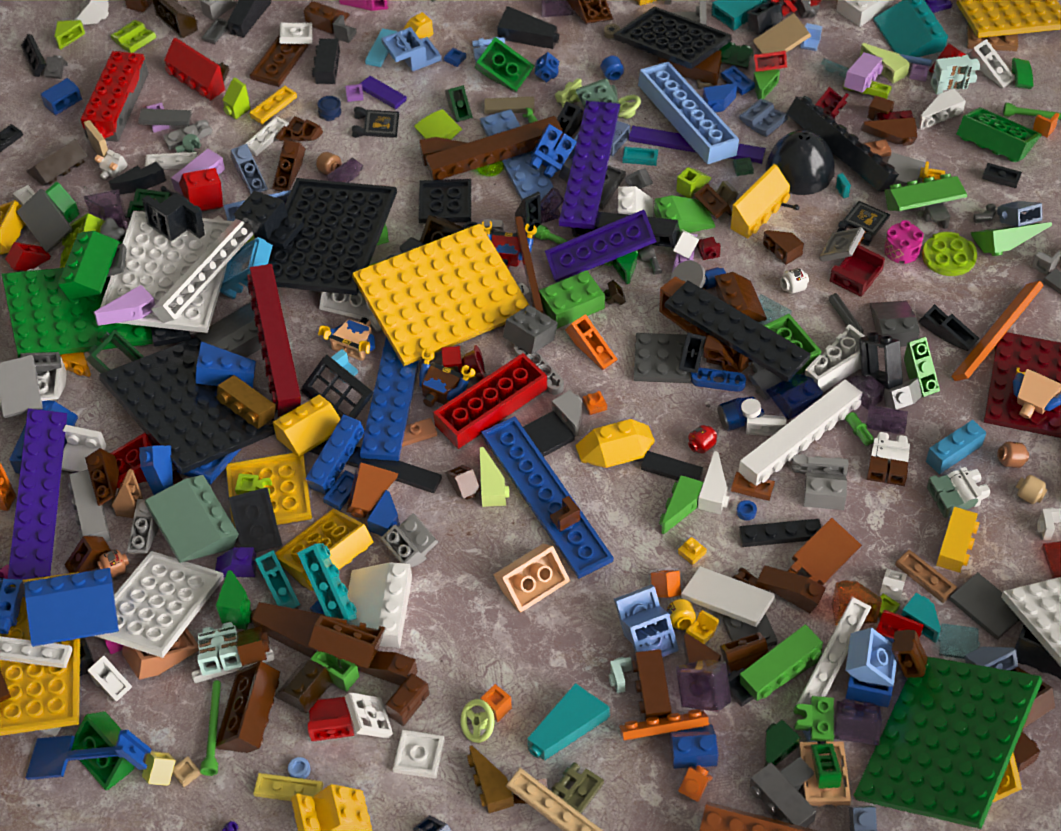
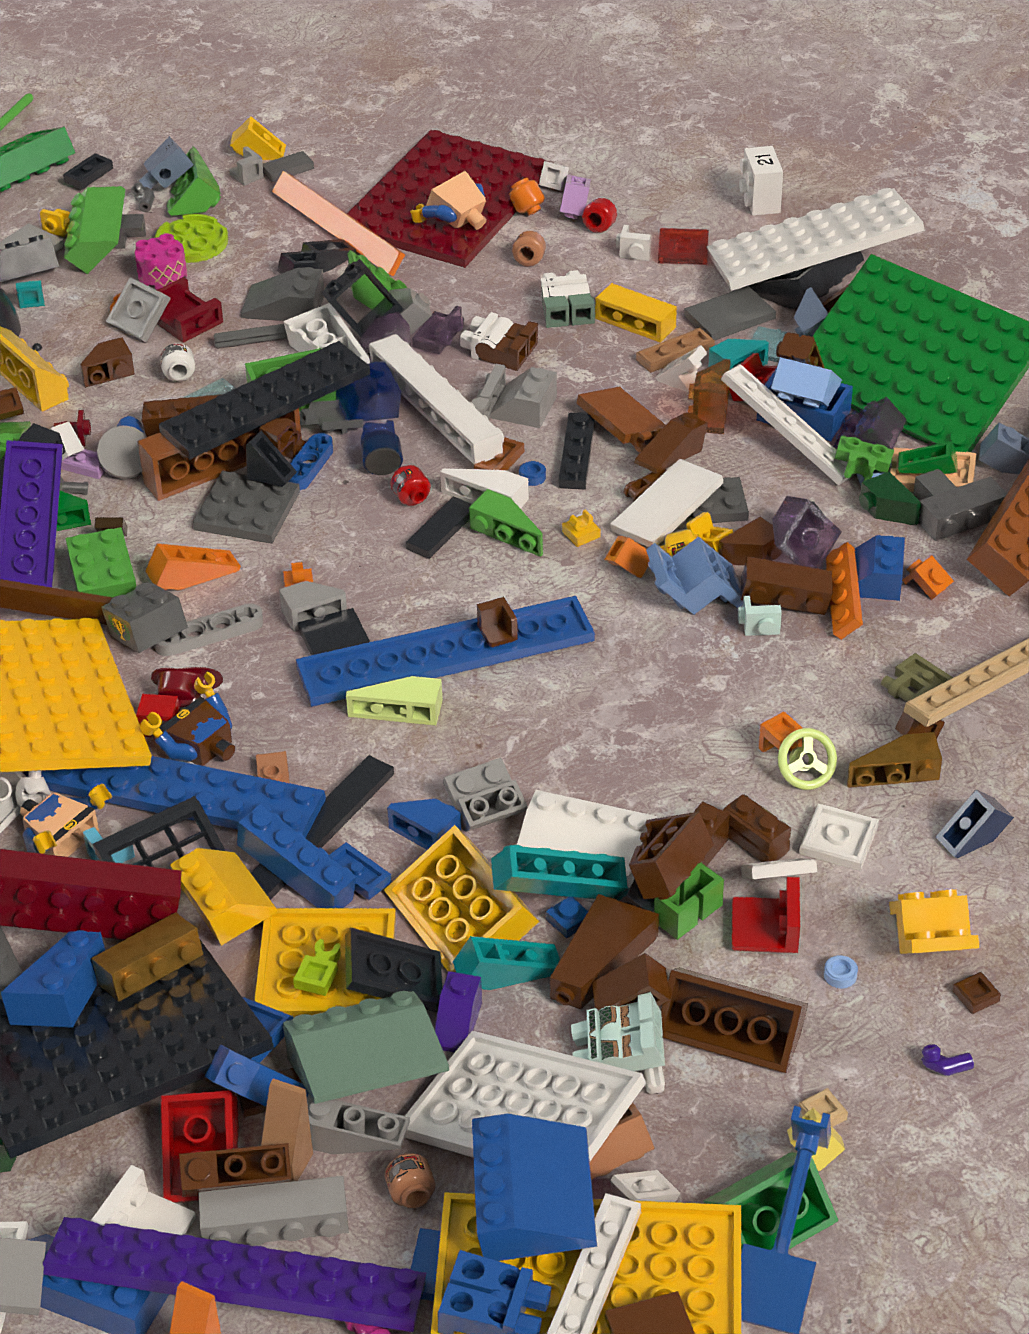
camera: 80 degrees left, 10 degrees down
(86, 554) = (381, 1221): reddish brown slope -> none
(209, 765) = (818, 1074): bright green piece -> none
(233, 603) = (541, 1006): green slope -> none
(284, 787) = (871, 987): light yellow tile -> none
(305, 686) = (707, 939): dark brown slope -> none
(368, 488) = (375, 832): dark orange slope -> none
(463, 481) = (391, 729): slope -> none
(490, 400) = (260, 678): red brick -> none
(532, 577) = (580, 680): light nougat slope -> none
(568, 721) = (822, 676): teal slope -> none
(615, 443) = (388, 572): yellow wedge -> none
(744, 651) = (756, 495): reddish brown brick -> none
(751, 408) = (388, 421): white tile -> none
(765, 425) = (409, 427): white panel -> none
(782, 663) = (784, 461): bright green wedge -> none
(859, 428) = (446, 355): bright green axle -> none
(867, 217) = (94, 293): black flag -> none
(956, 446) = (503, 285): dark azure brick -> none
(1031, 489) = (582, 246): tan head -> none
(1045, 125) = (25, 121): orange panel -> none

